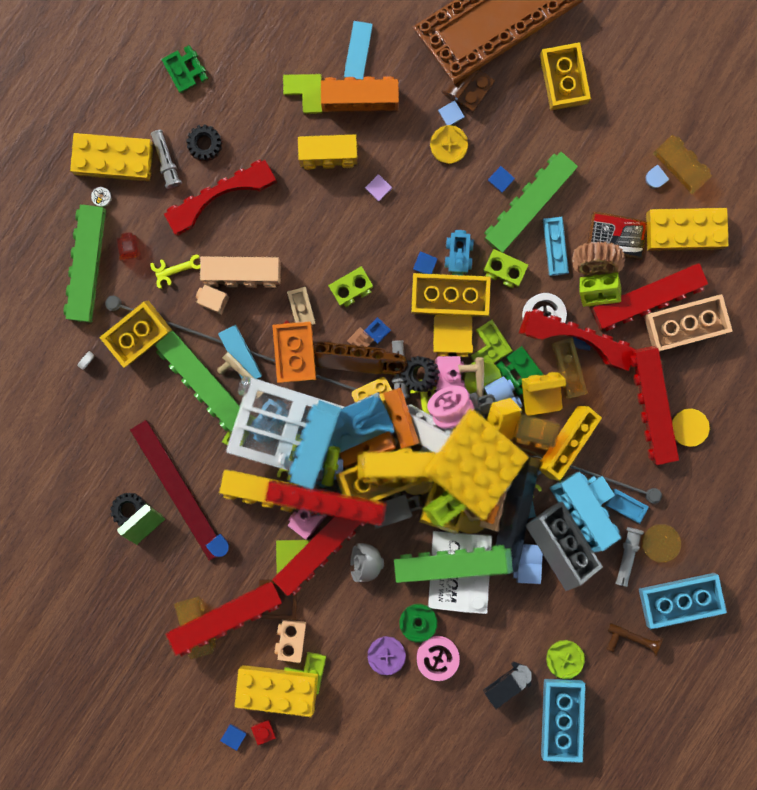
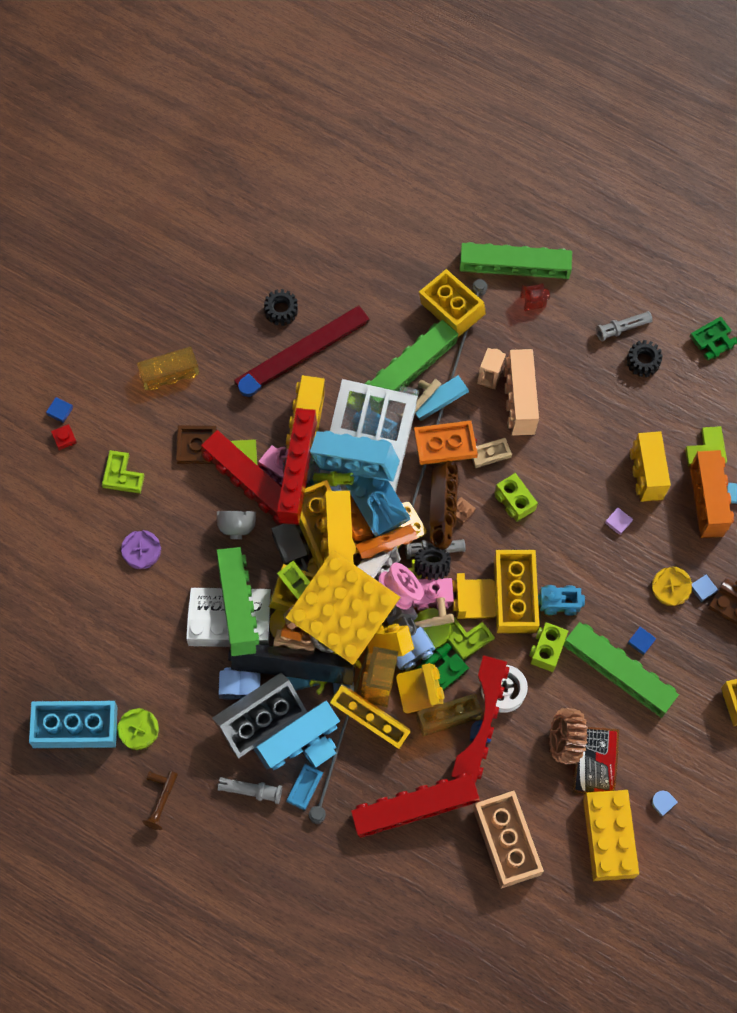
camera: 85 degrees right, 20 degrees down
(86, 360) = (423, 264): white tile -> none
(101, 196) = (581, 273): tile -> none
(111, 157) = (620, 278): yellow brick -> none
(141, 524) = (267, 315): bright green tile -> none
(162, 273) = (514, 328): neon yellow bar -> none
(223, 618) = (179, 391): red brick -> none
(255, 178) = (571, 345): red arch -> none
(276, 690) = (105, 443): yellow brick -> none
(295, 641) = (154, 462): light nougat brick -> none
(377, 330) = (473, 526): blue tile -> none
(411, 630) = (175, 568): green plate -> none
(425, 263) = (546, 569): blue tile -> none
(452, 664) = (139, 585): bright pink wheel -> none
(508, 685) = (111, 668): black piece -> none
(555, 246) = (578, 699): medium azure tile -> none
(600, 289) = (536, 742): lime brick -> none
(650, 296) = (533, 799): red brick -> none
(661, 543) = (265, 825): clear yellow tile -> none
(682, 164) = (682, 828): clear yellow brick -> none
(682, 600) = (203, 846): medium azure brick -> none
(690, 427) = (393, 851): yellow tile -> none

